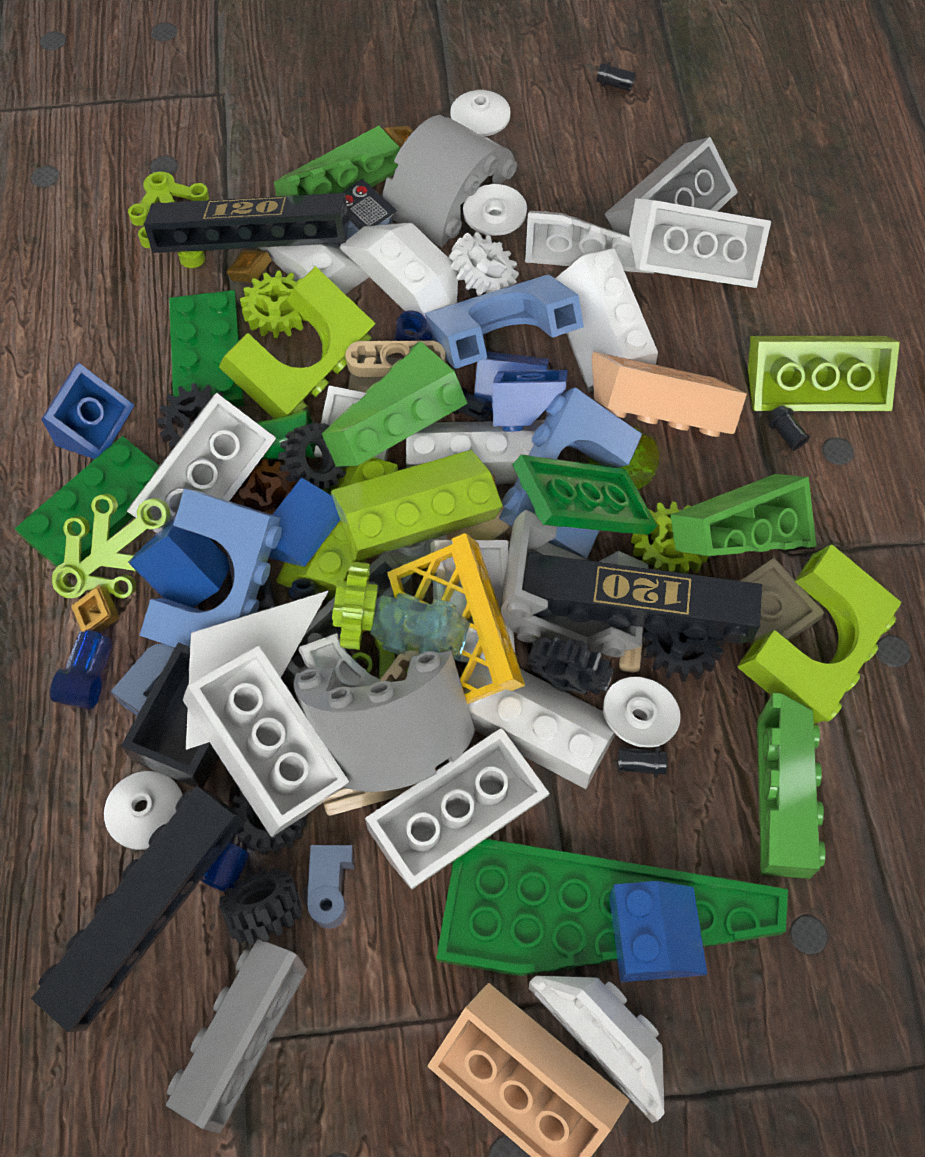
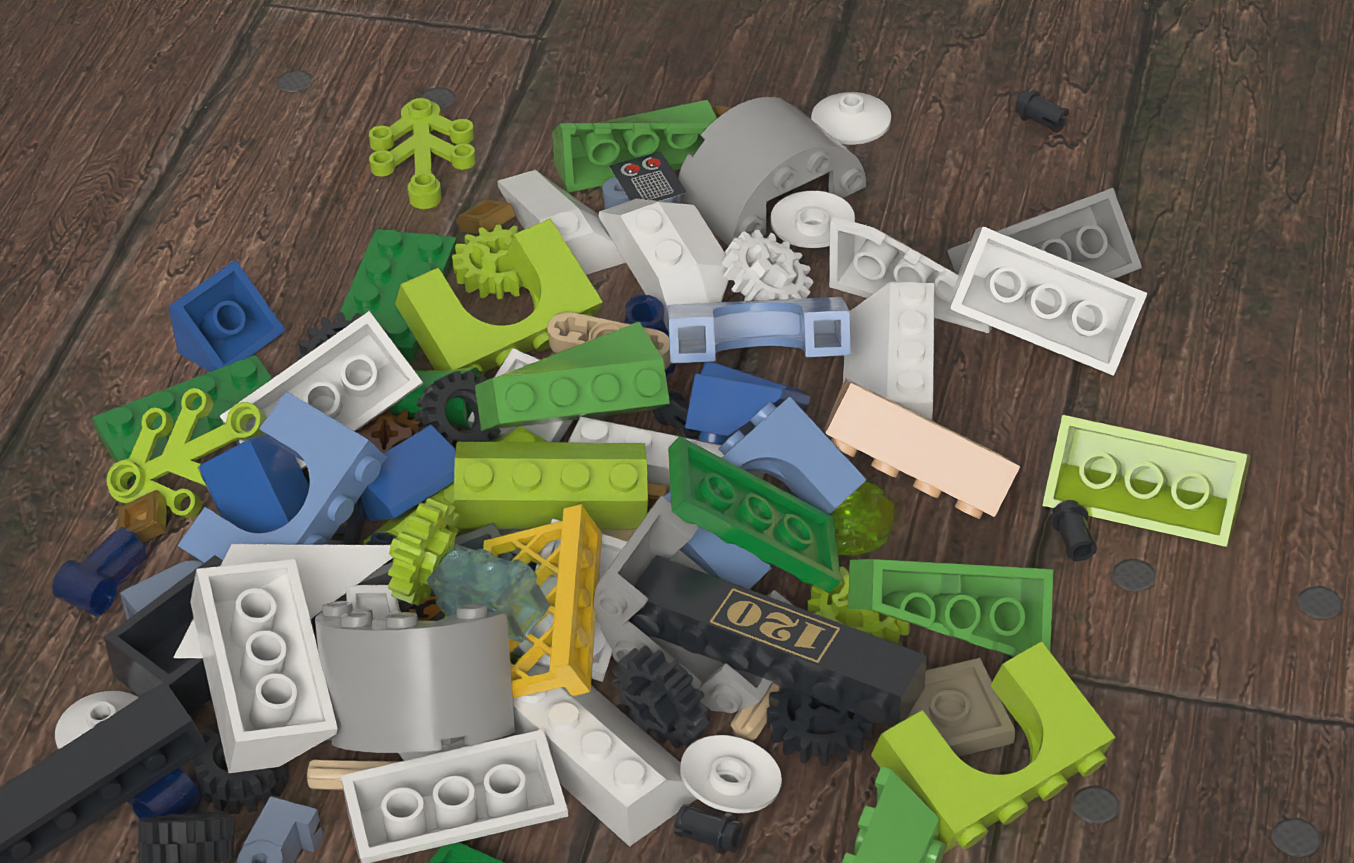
camera: 20 degrees right, 20 degrees down
(247, 223) = (499, 165): black brick -> none

